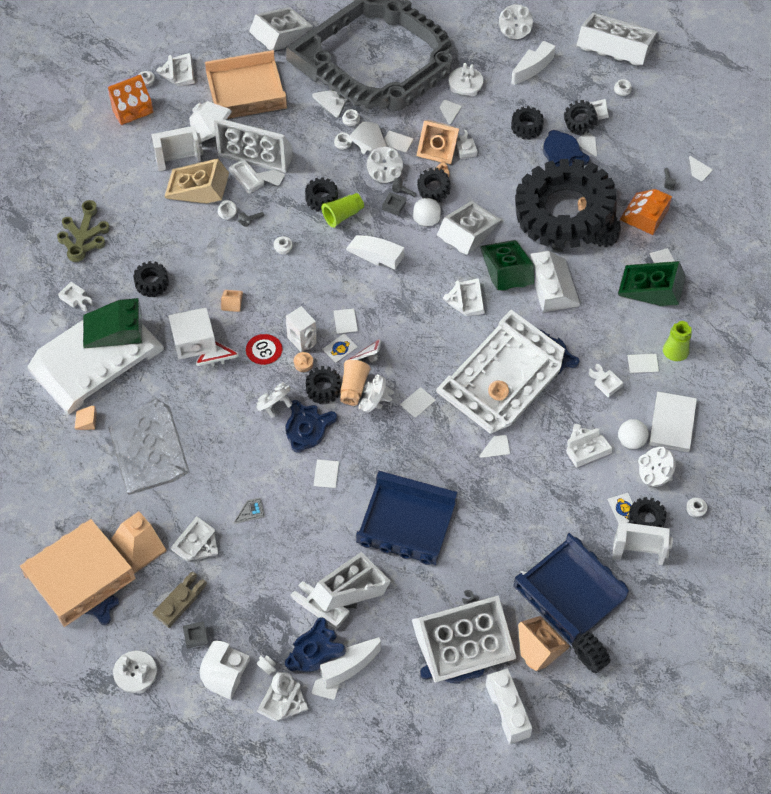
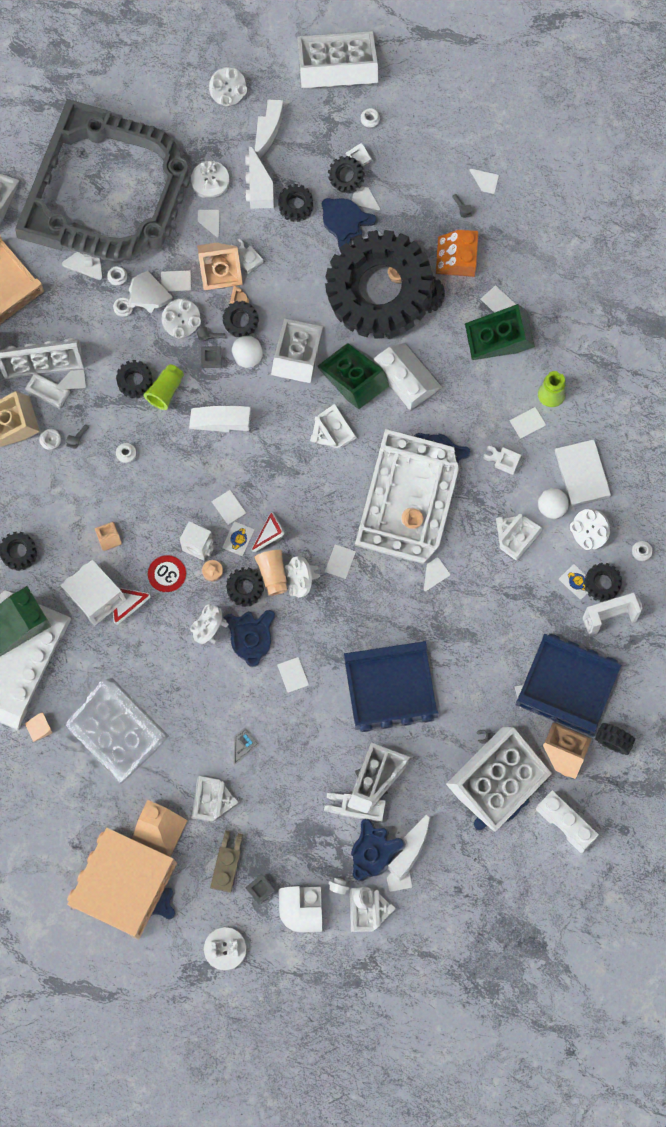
camera: 25 degrees left, 15 degrees up
(503, 100) = (261, 185): none -> white slope

